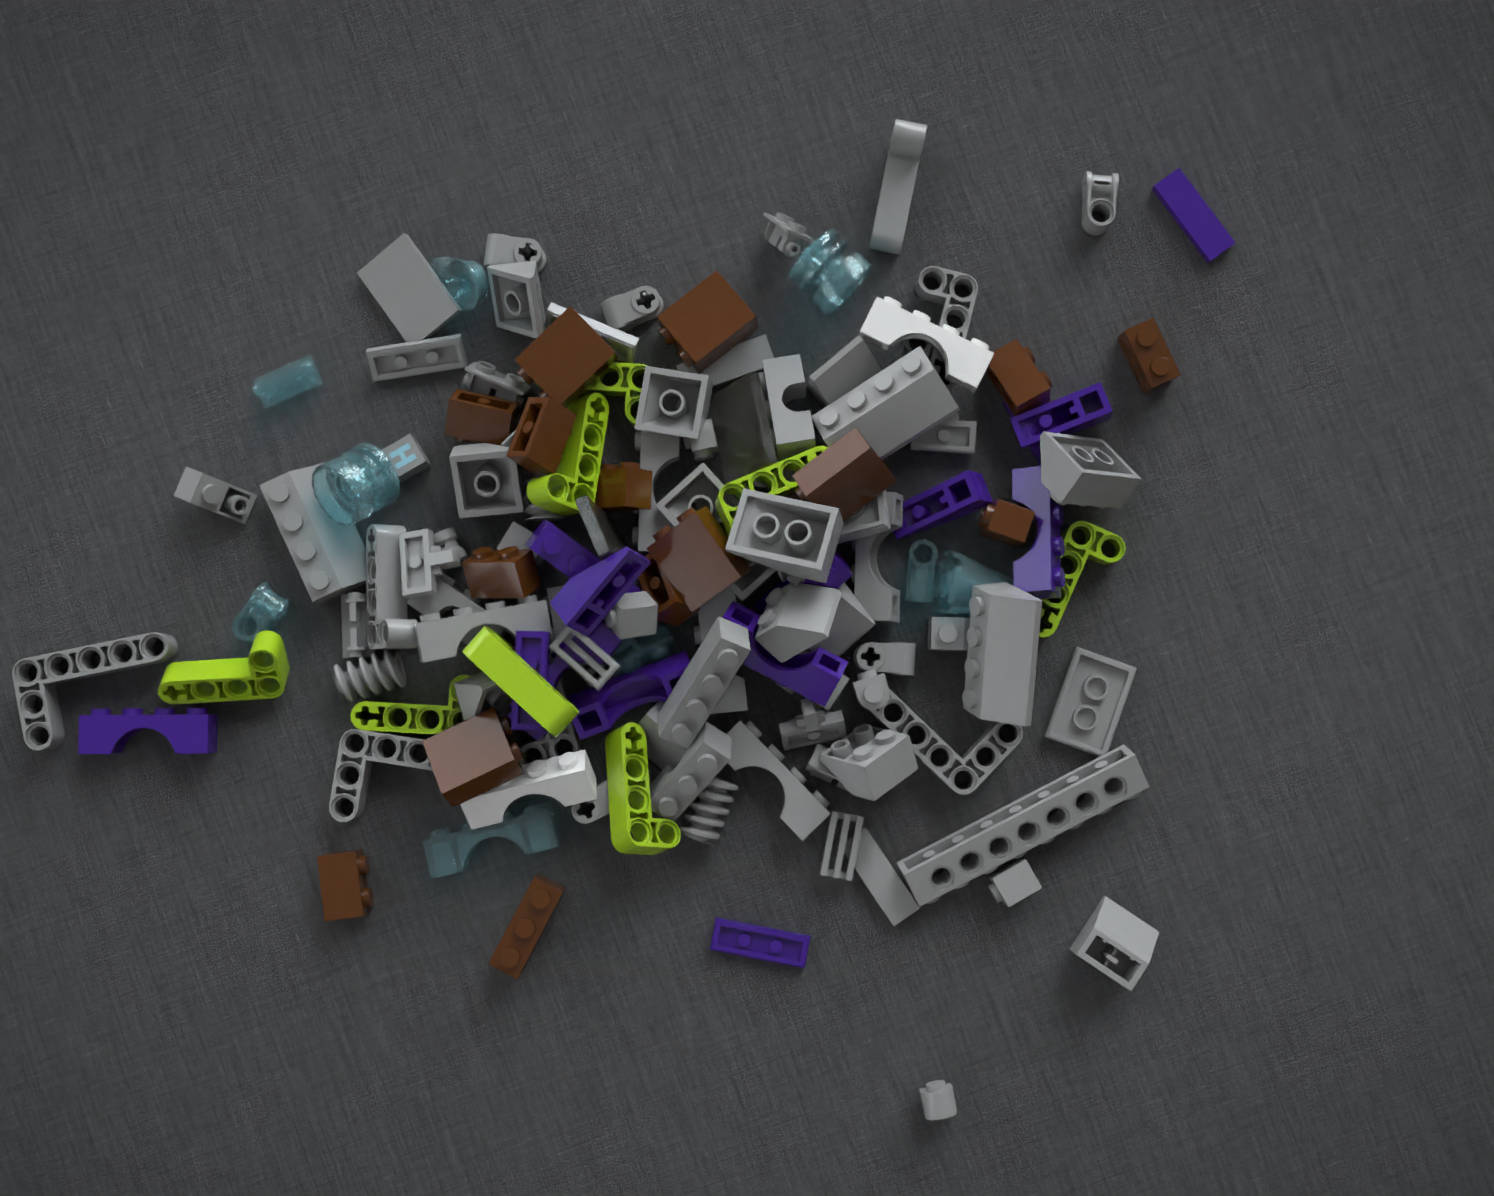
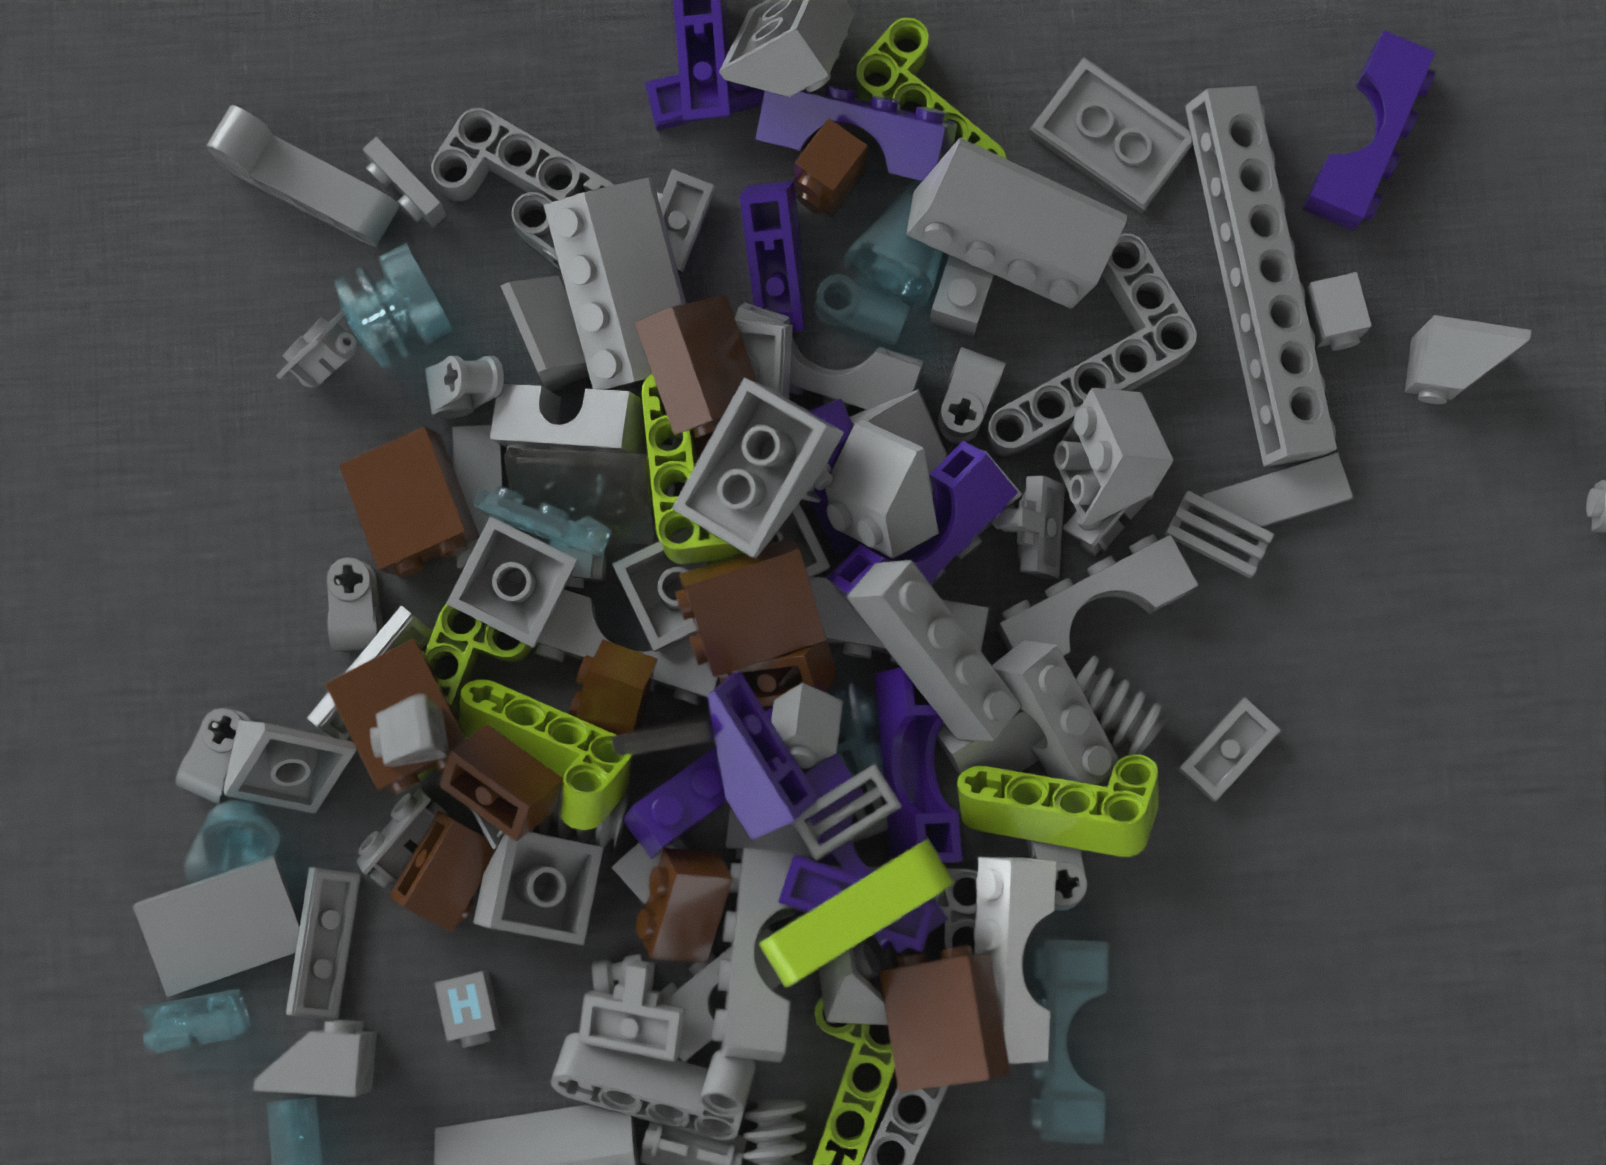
camera: 75 degrees left, 5 degrees down
(340, 384) = (325, 1062): none -> light grey slope
(352, 305) = (208, 1016): none -> clear light blue hinge
(355, 484) = (485, 1085): clear light blue wheel -> none
(527, 926) = (1211, 1022): reddish brown brick -> none
(550, 370) = (410, 733): none -> light grey slope
(705, 890) = (1229, 749): none -> light grey plate
(717, 412) = (546, 522): none -> clear light blue hinge
(760, 942) = (1324, 693): dark purple tile -> none
(792, 332) = (462, 386): none -> light grey piece
(871, 690) = (1012, 421): light grey plate -> none
(891, 324) = (580, 156): white arch -> none
(907, 263) = (415, 198): none -> light grey plate
(1005, 968) = (1455, 354): none -> light grey slope
(1018, 378) = (629, 94): reddish brown brick -> none
(1116, 943) = (1461, 197): light grey slope -> none
(1183, 876) = (1390, 82): none -> dark purple arch

